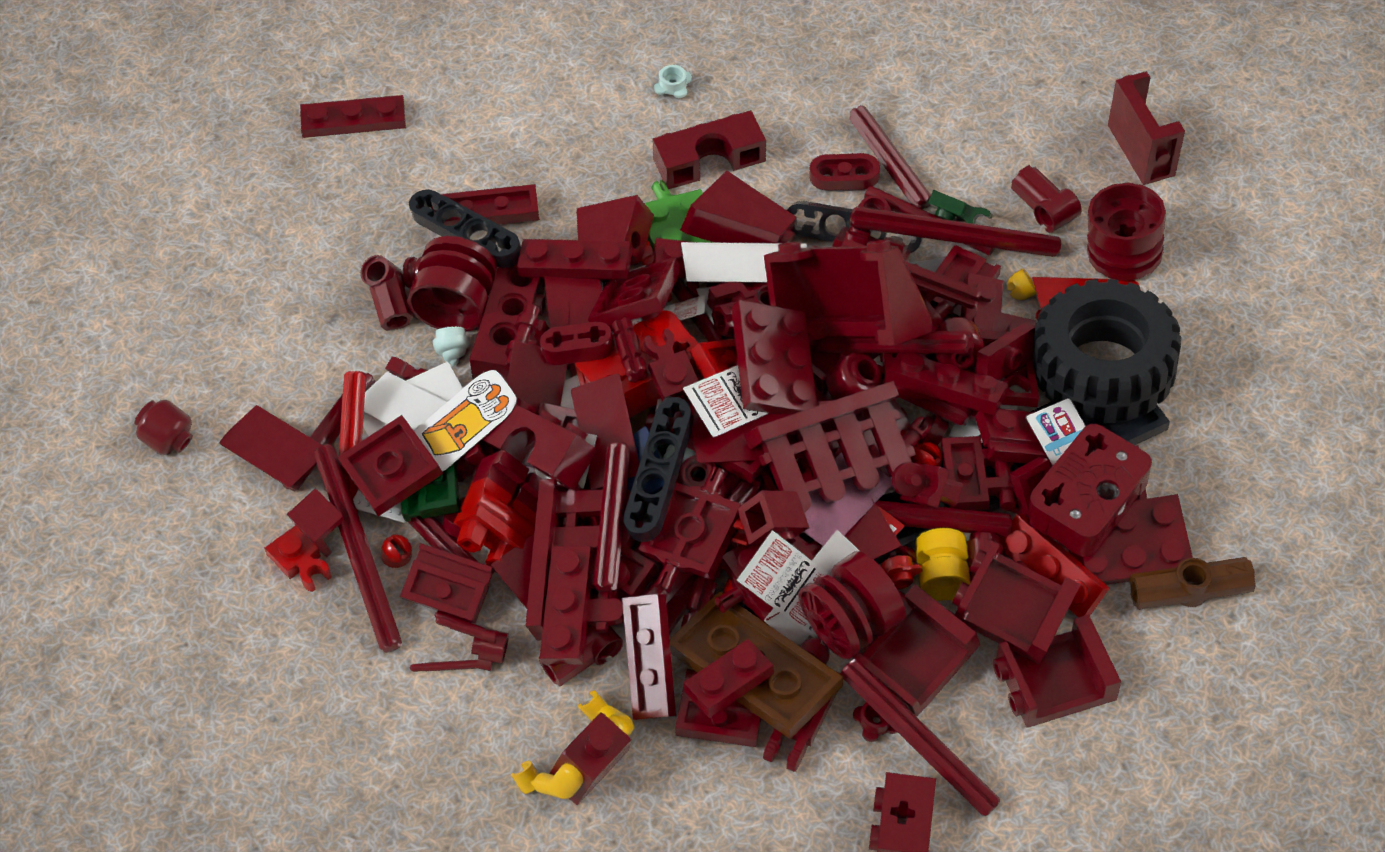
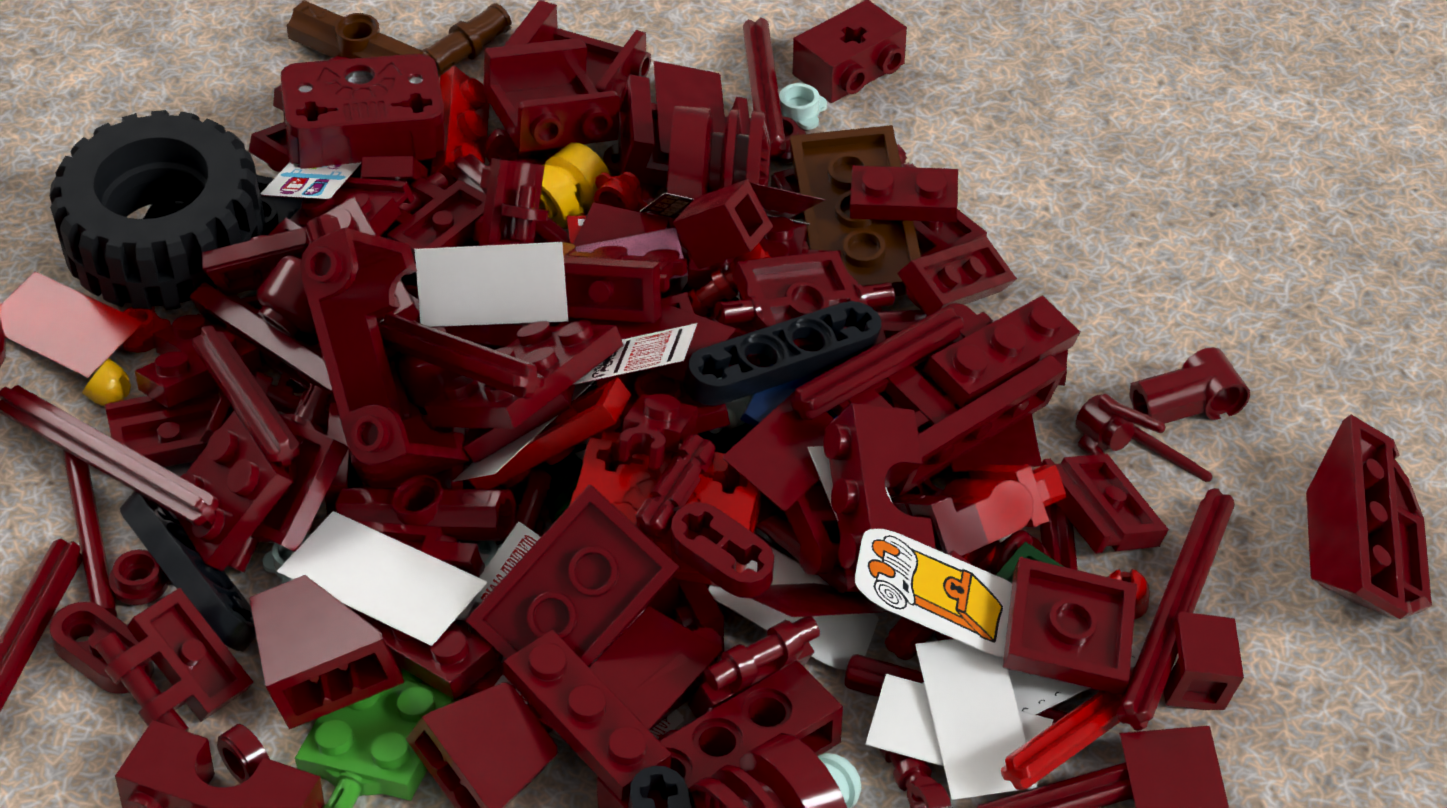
camera: 140 degrees left, 10 degrees down
(278, 661) = (1367, 525): none -> dark red wedge
(298, 554) = (1264, 669): red plate -> none
(458, 711) = (1202, 386): none -> dark red piece
(585, 758) = (1104, 248): torso -> none
(716, 166) = (240, 752): none -> dark red tile
(797, 182) = (186, 653): none -> dark red plate
(806, 324) = (461, 356): none -> dark red axle
(851, 392) = (491, 284): none -> white sticker
(892, 746) = (802, 104): none -> light aqua plate
(938, 679) = (686, 87): none -> dark red sticker
(952, 208) = (55, 503): dark green plate -> none
(1143, 644) = (469, 37): none -> reddish brown pin

